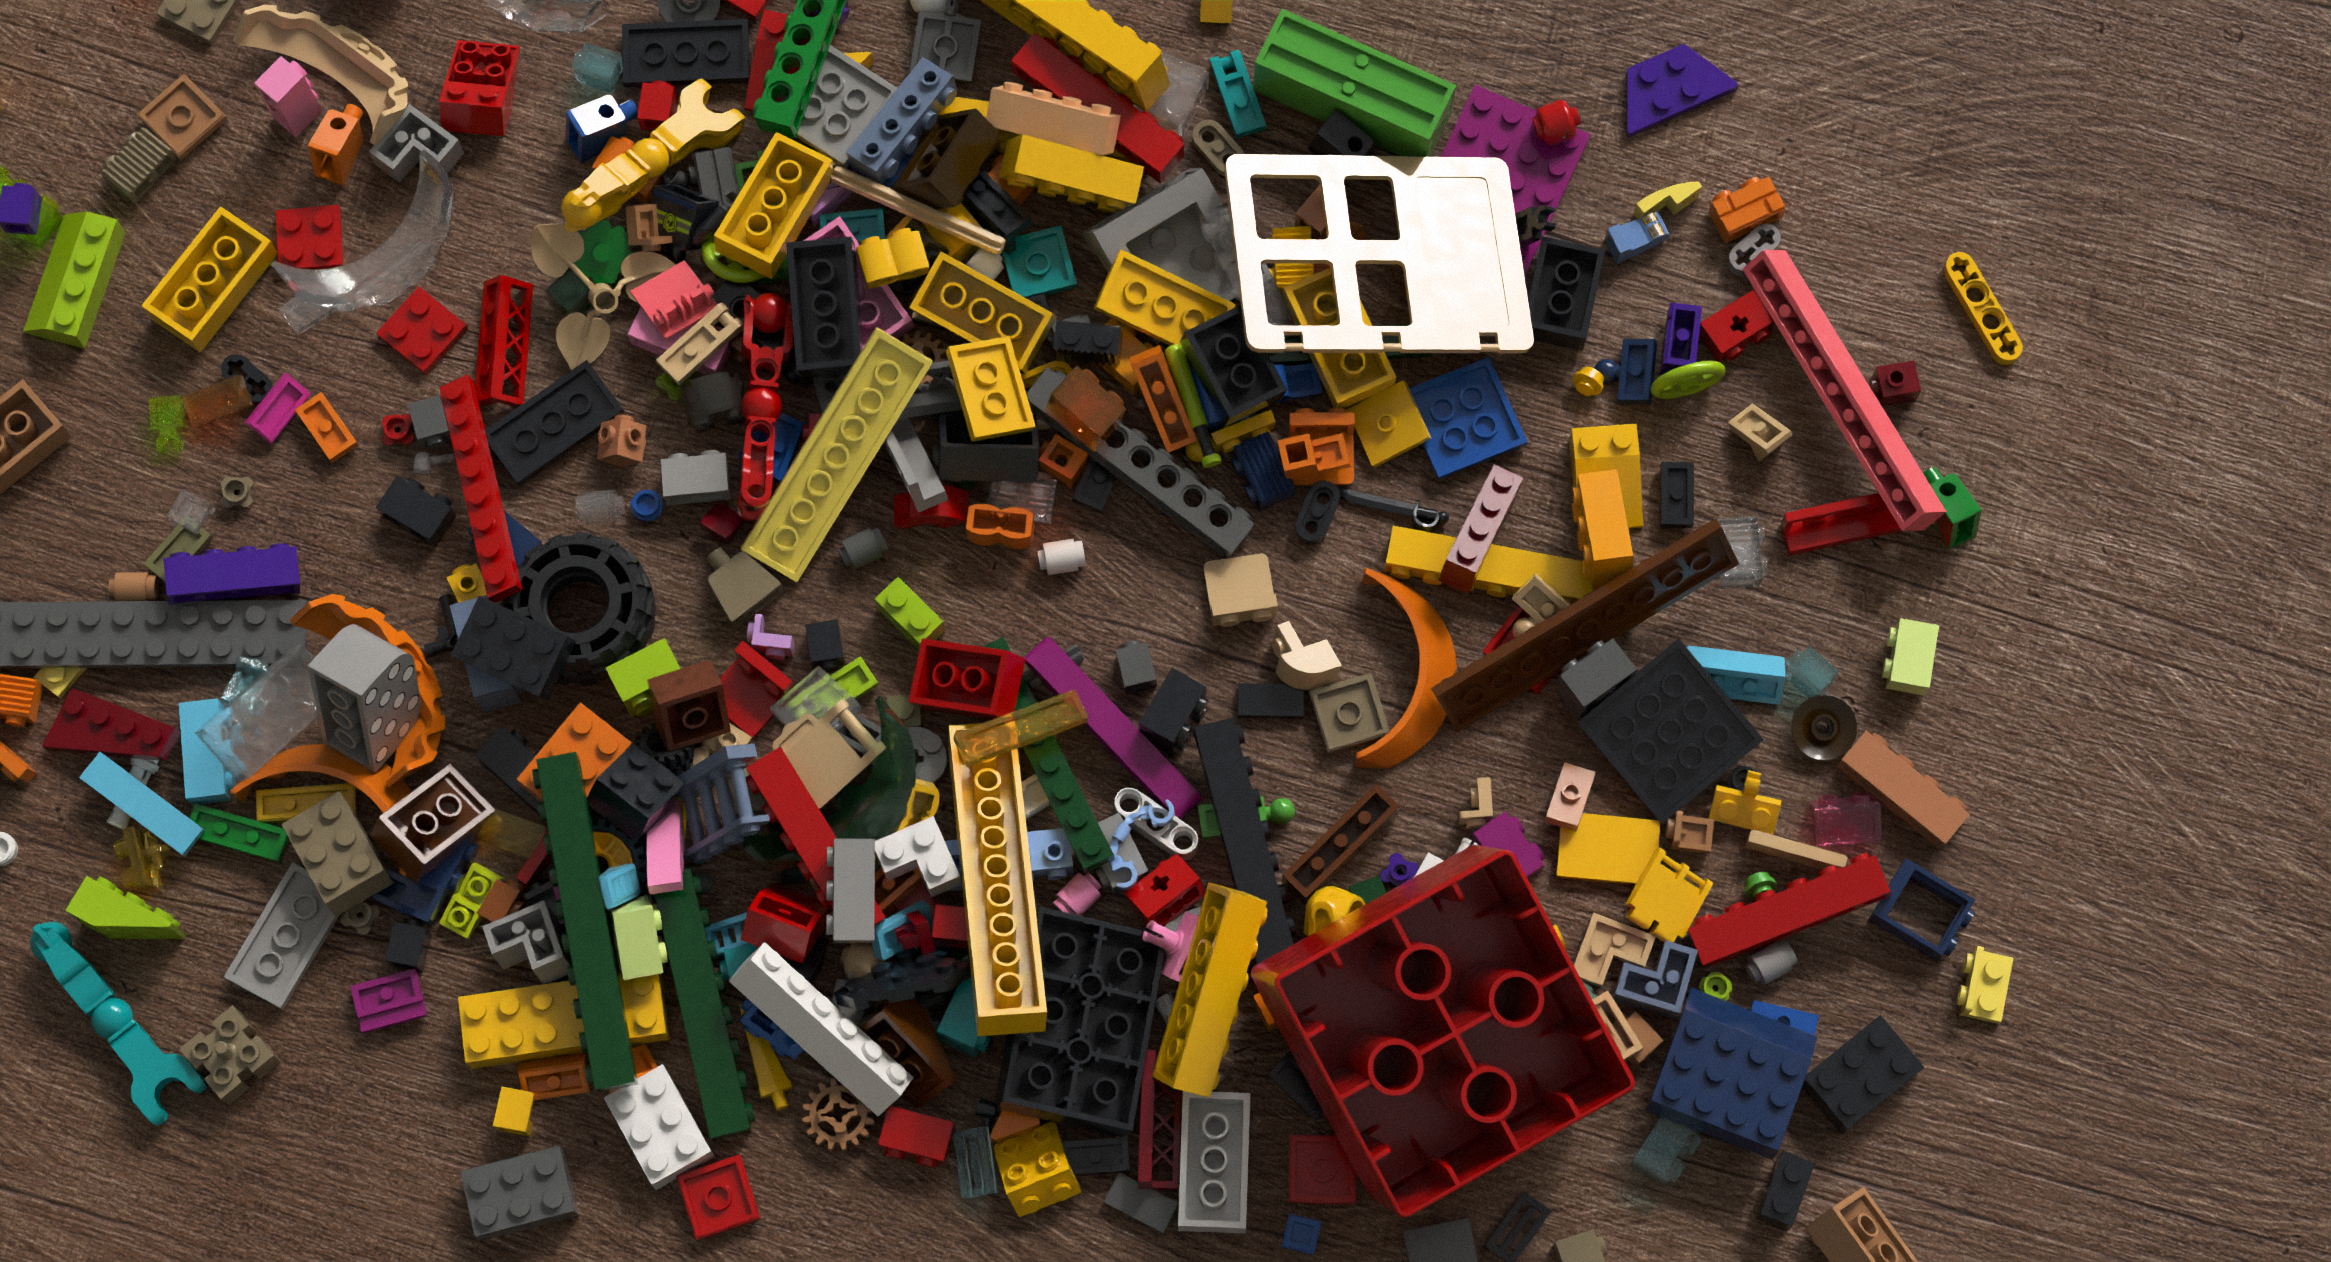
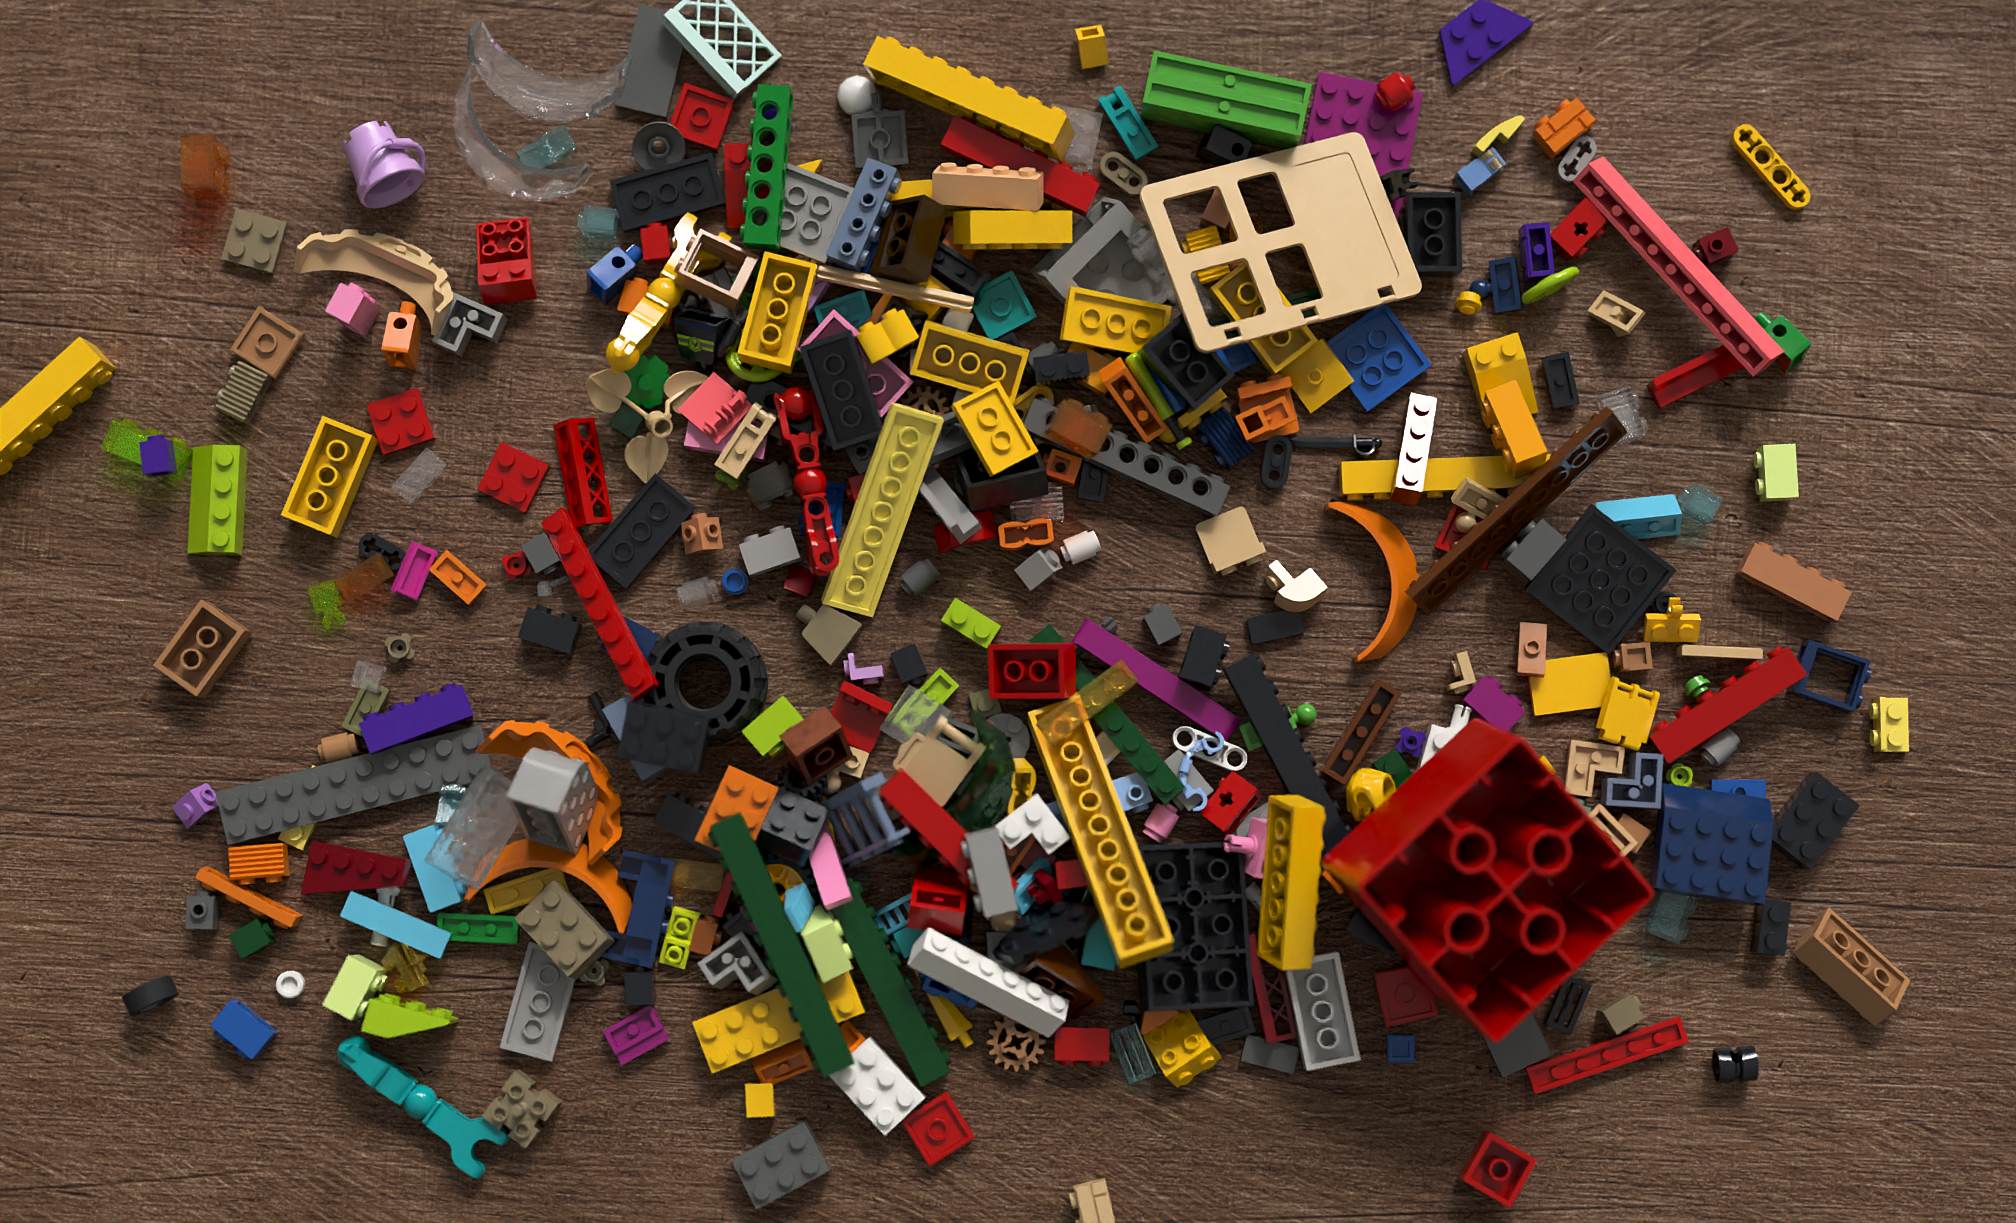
camera: 15 degrees left, 10 degrees up
(71, 860) = (355, 986): none -> yellowish green brick
(395, 263) = (474, 428): clear windscreen -> none
(431, 822) = (635, 888): reddish brown slope -> none
(467, 582) = (610, 684): yellow brick -> none
(643, 227) = (674, 353): medium nougat bracket -> none
(731, 124) = (725, 250): none -> medium nougat window
(1006, 568) = (1039, 568): none -> light grey brick
(1349, 713) = (1340, 622): dark tan plate -> none
(1840, 727) = (1731, 548): dark brown dish -> none
(1846, 819) = (1753, 616): clear pink bracket -> none

